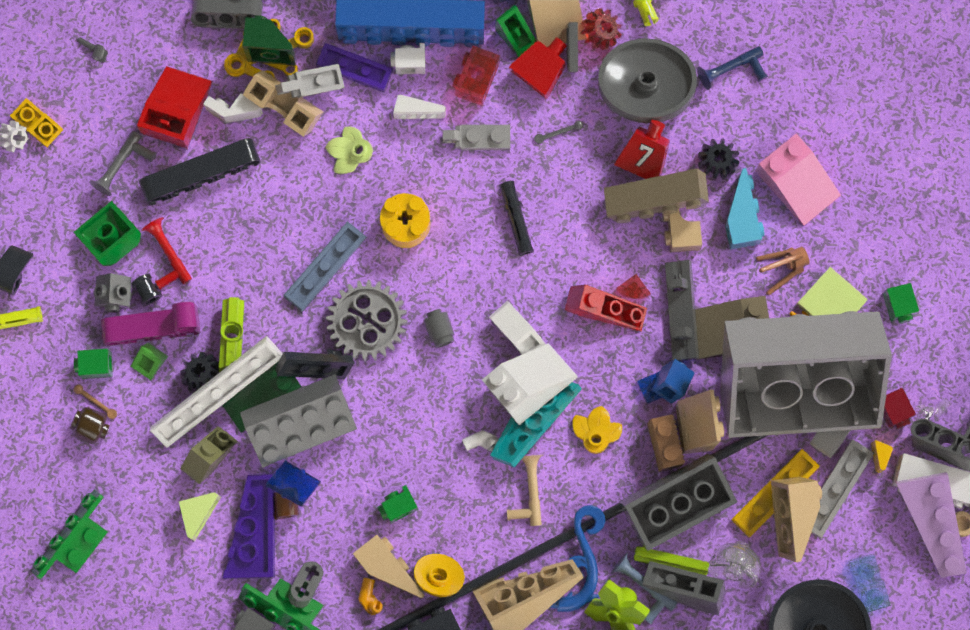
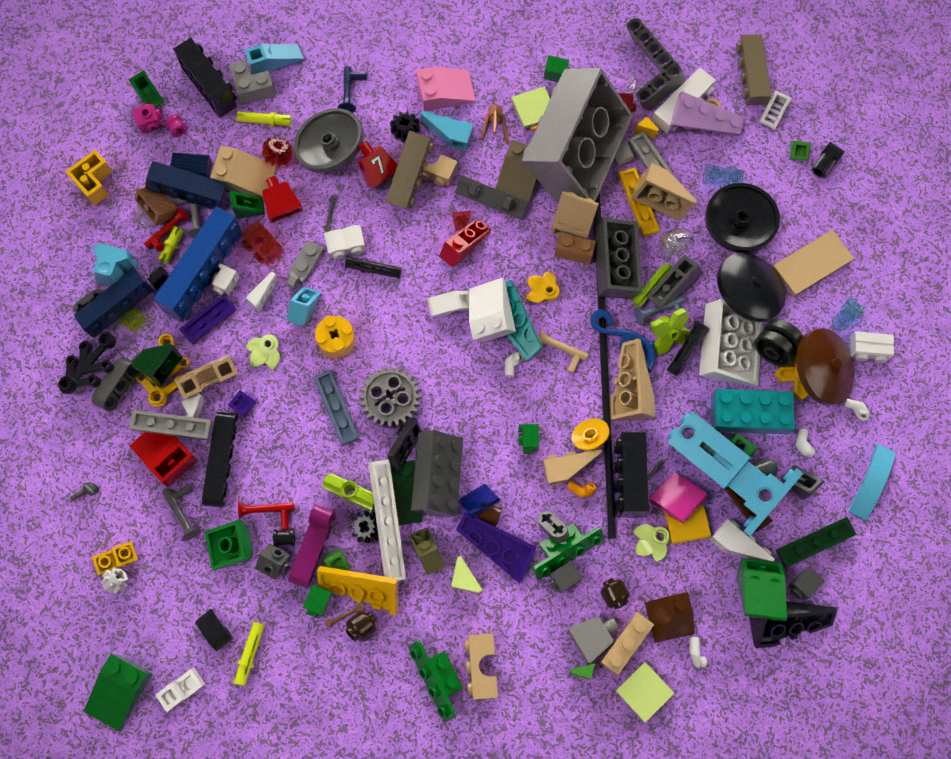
camera: 65 degrees left, 5 degrees down
(88, 591) = (481, 685): none -> tan arch
(132, 403) = (373, 589): none -> yellow wing
(205, 98) = (170, 425): none -> light grey plate
(275, 160) = (242, 403): none -> dark purple plate
(312, 82) = (202, 348): light grey hinge -> none
(425, 163) = (303, 306): none -> medium azure slope
(439, 328) = (421, 352): dark grey brick -> none
(529, 169) = (345, 242): none -> white brick
(572, 46) = (282, 176): dark grey tile -> none
(646, 385) = (532, 240): clear blue tile -> none
(673, 381) = (536, 223): blue brick -> none

